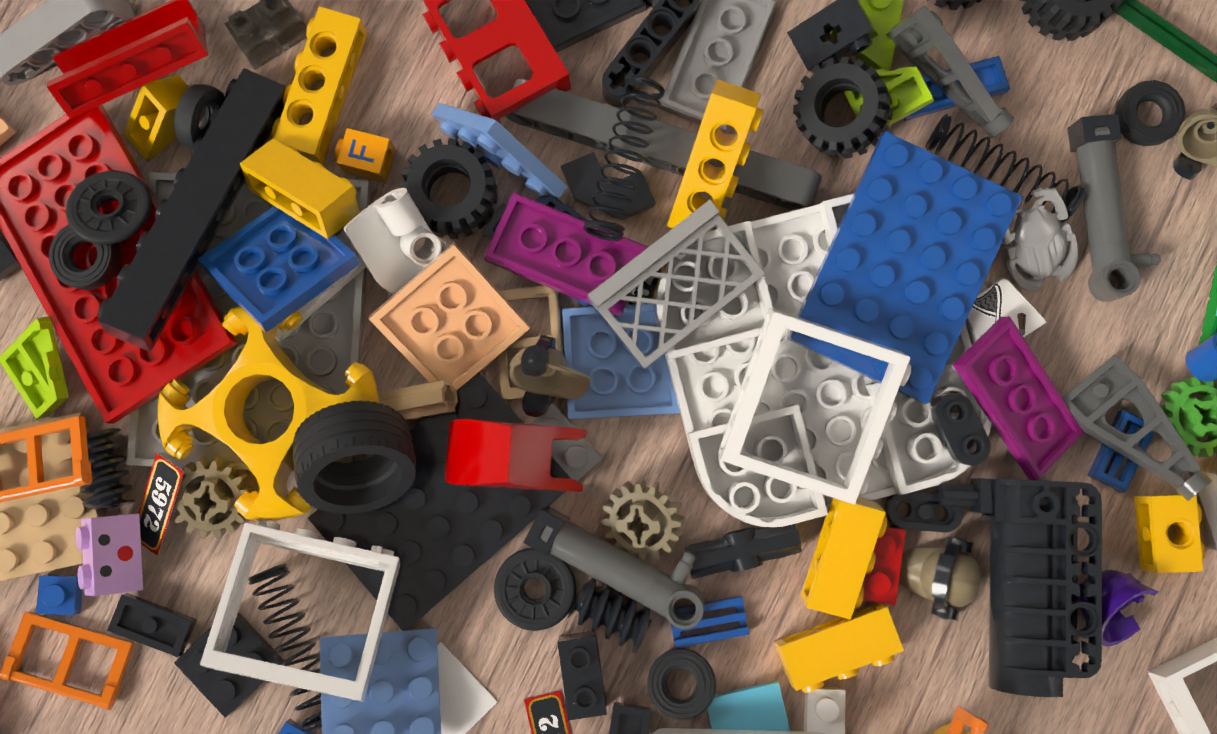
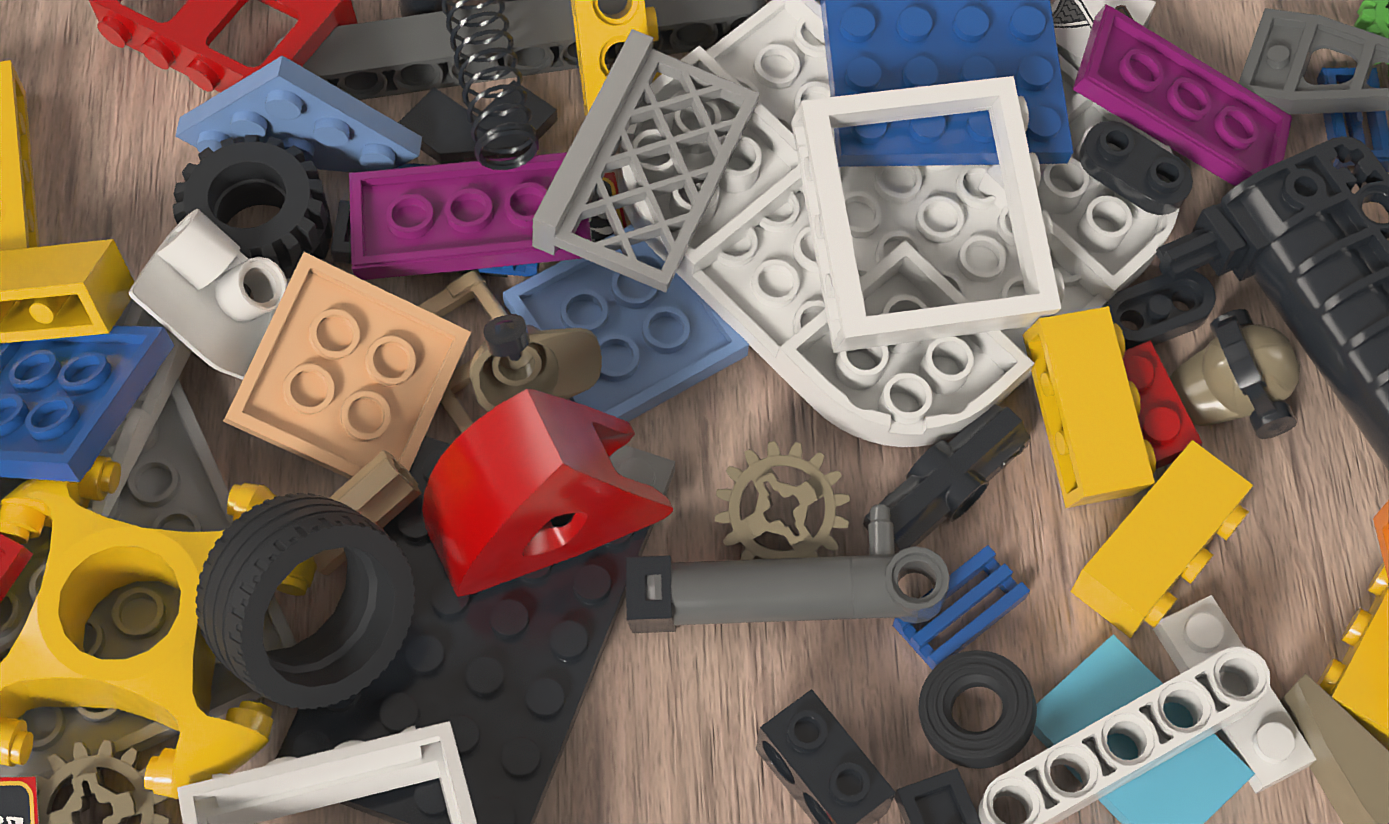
camera: 30 degrees left, 20 degrees down
(365, 155) = (103, 217): light orange brick -> none
(528, 612) = (674, 734): black wheel -> none
(612, 614) = (817, 659): black piece -> none

